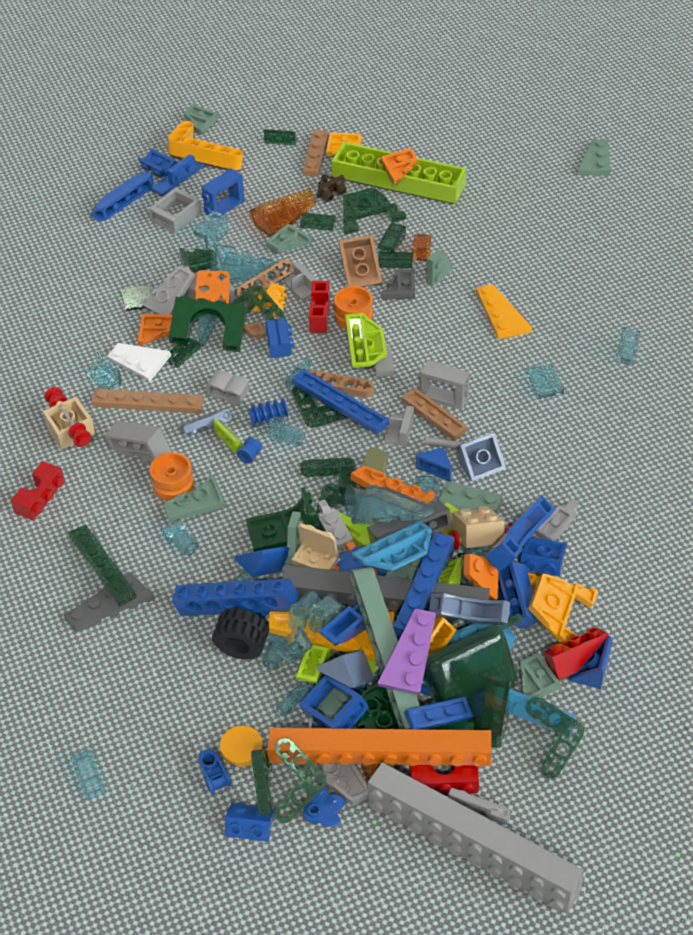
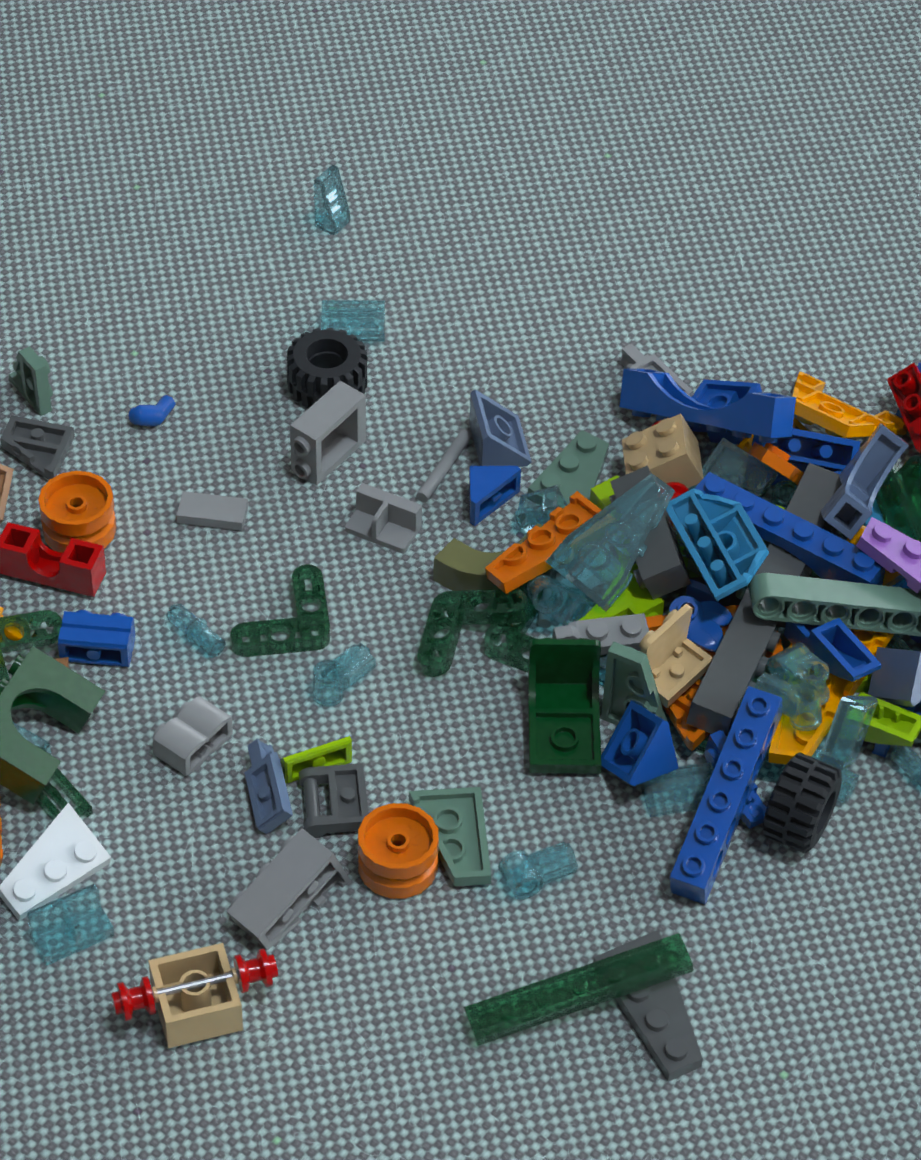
camera: 80 degrees left, 0 degrees up
(31, 502) = (329, 1054): red arch -> none
(148, 401) = (166, 872): medium nougat plate -> none
(205, 450) = (346, 795): none -> dark grey plate
(249, 449) = (365, 732): blue wheel -> none
(267, 412) = (286, 685): blue piece -> none
(340, 401) = (306, 577): blue plate -> none
(341, 380) = (248, 582): medium nougat beam -> none
(365, 341) = (179, 518): lime wedge -> none
(435, 414) = (372, 469): medium nougat plate -> none
(441, 322) = (152, 414): none -> blue arm
(497, 376) = (321, 361): none -> black tyre
(501, 314) = (171, 336): light orange wing -> none

